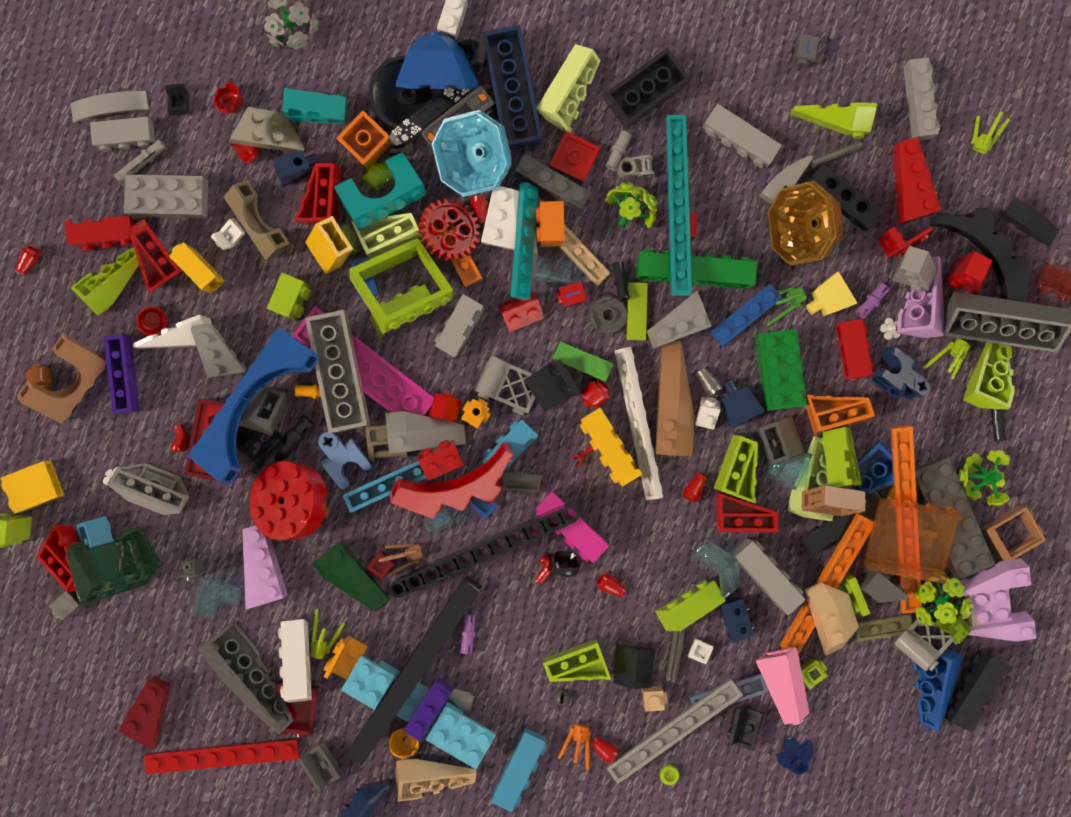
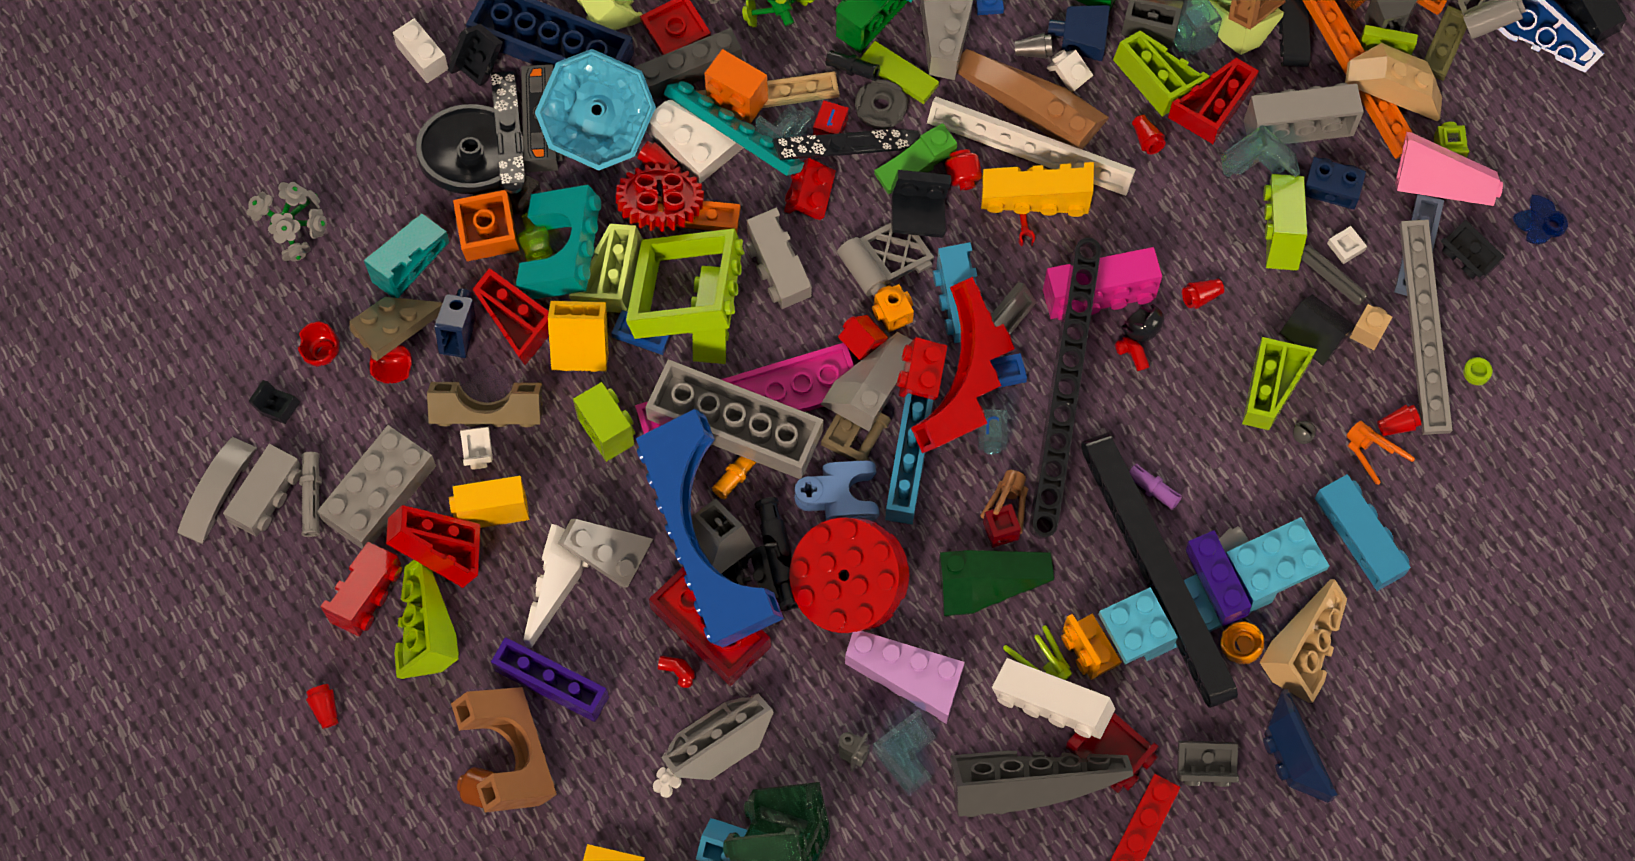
camera: 55 degrees left, 20 degrees down
(147, 318) = (502, 603): red hair -> none
(436, 63) = (463, 90): blue brick -> none
(560, 313) = (844, 143): none -> black piece

